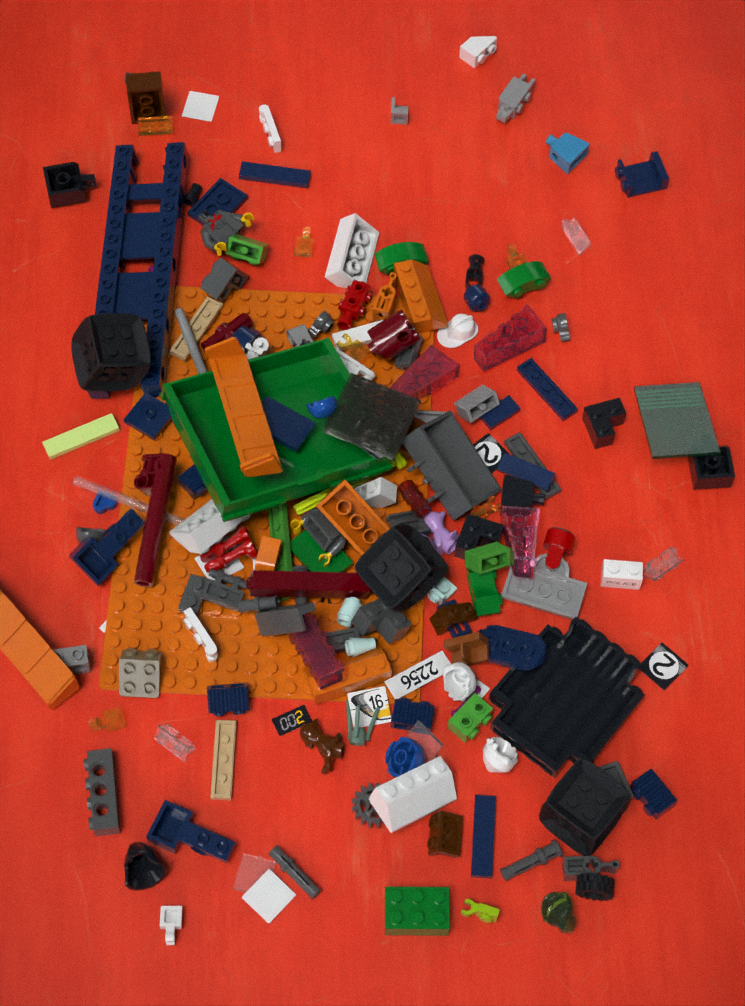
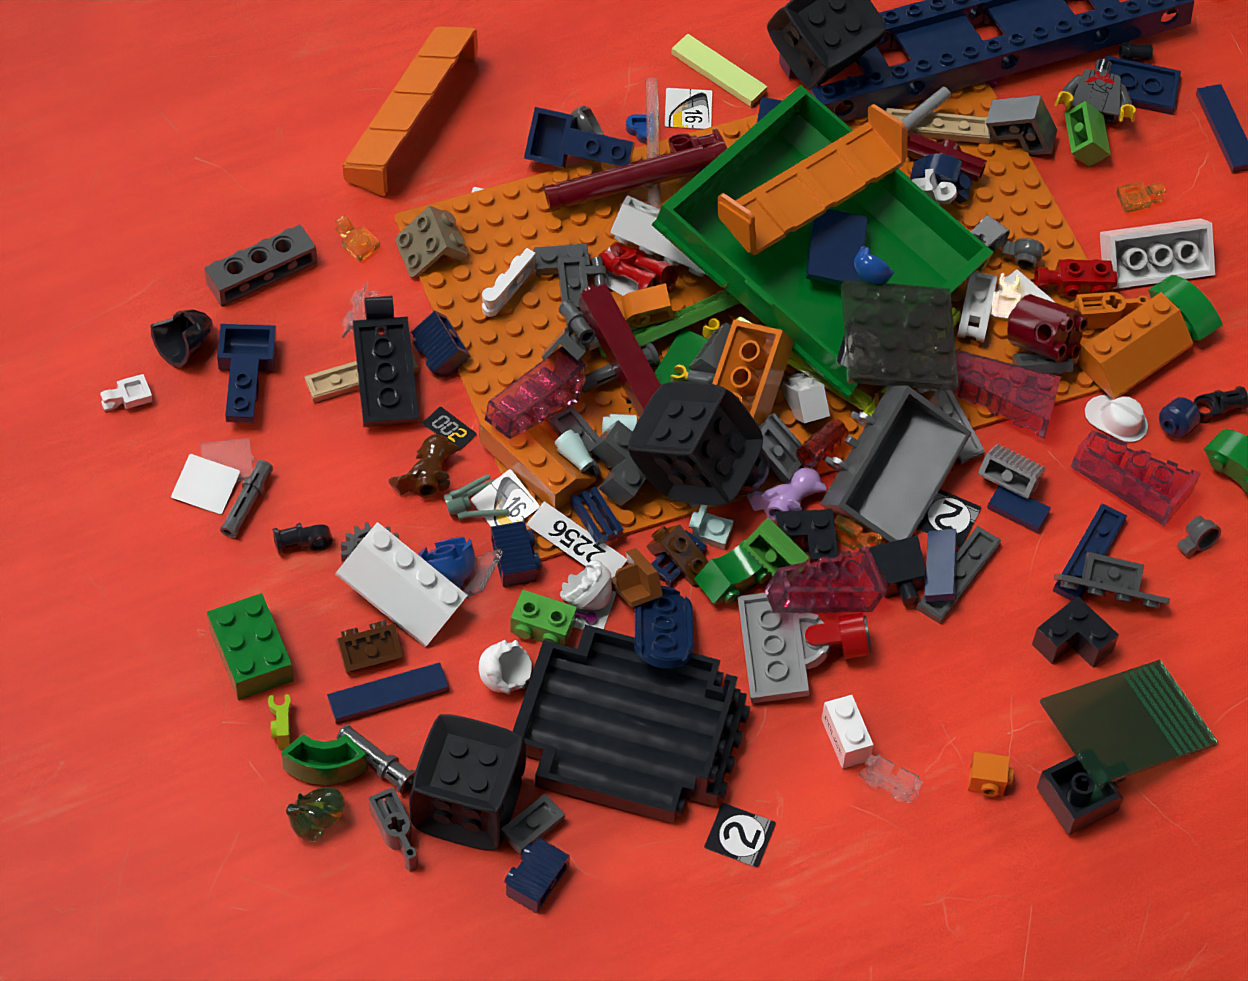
camera: 65 degrees right, 5 degrees down
(75, 658) = (412, 170): light grey brick -> none
(101, 468) = (688, 108): none -> sticker
(231, 740) = (385, 365): none -> black hinge
(340, 848) = (303, 537): none -> black connector
(407, 650) = (588, 498): none -> dark blue tile
(526, 895) = (324, 761): none -> green brick
(575, 384) = (1113, 576): none -> dark grey bracket
(595, 886) = (368, 839): black tyre -> none
(678, 510) = (990, 774): none -> orange brick

